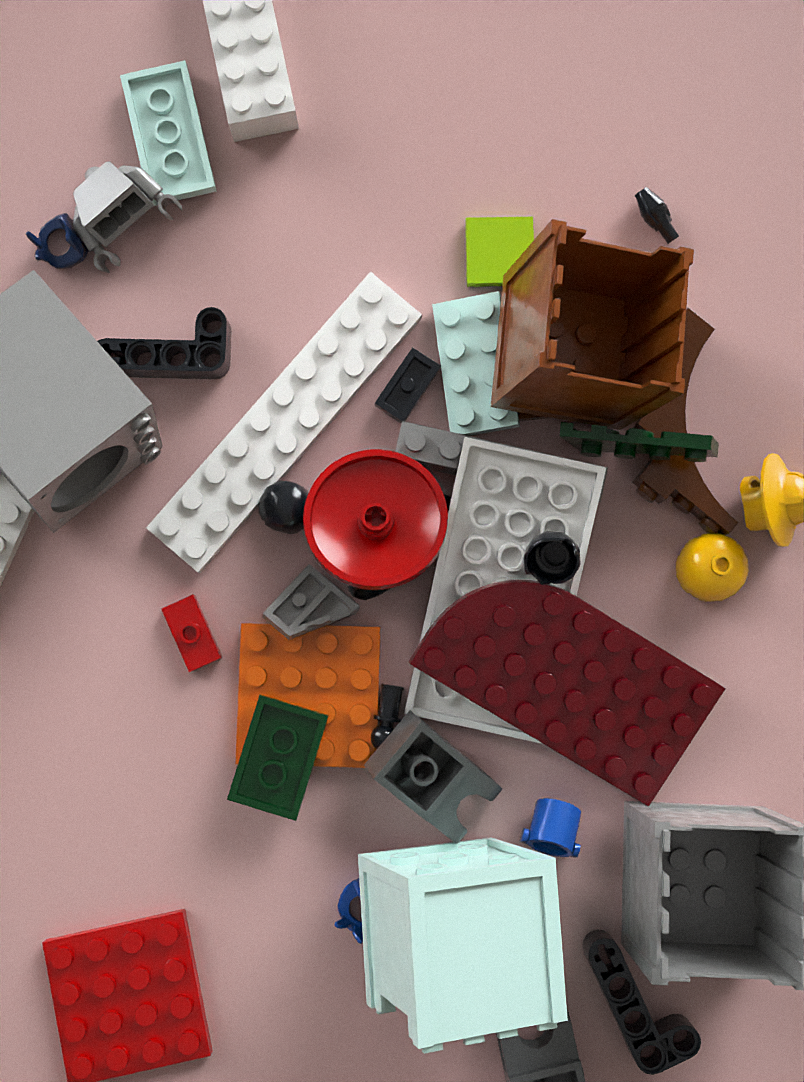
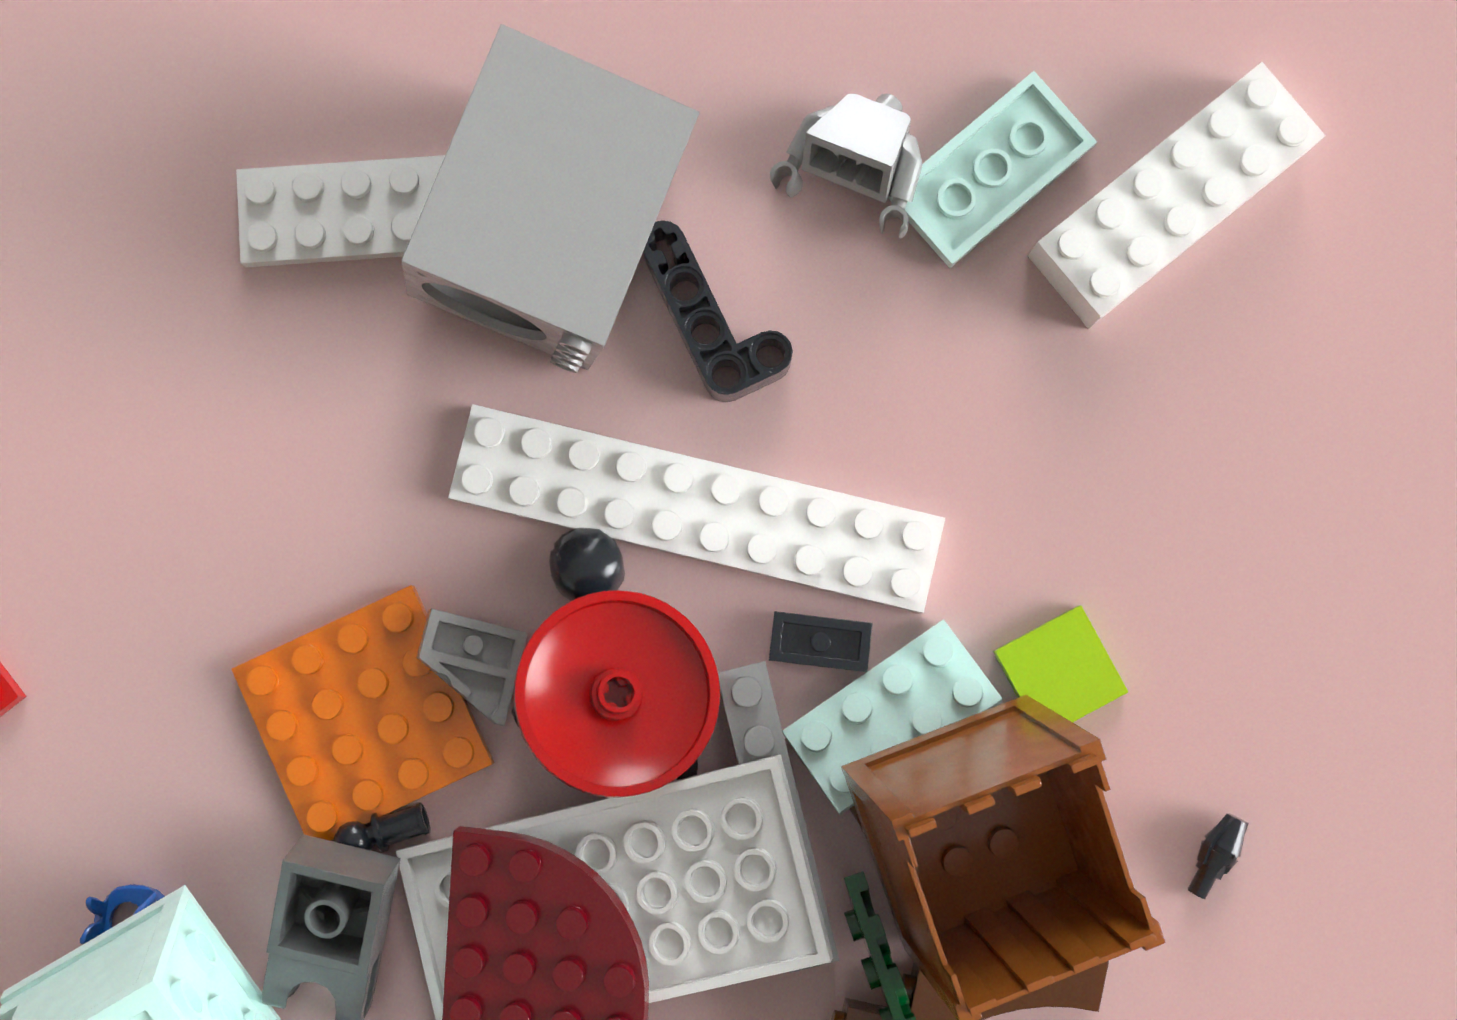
camera: 65 degrees right, 0 degrees up
(74, 255) = (778, 135): dark blue piece -> none
(191, 633) = (369, 529): red plate -> none
(278, 757) = (260, 720): dark green plate -> none
(552, 558) = (676, 949): black hair -> none

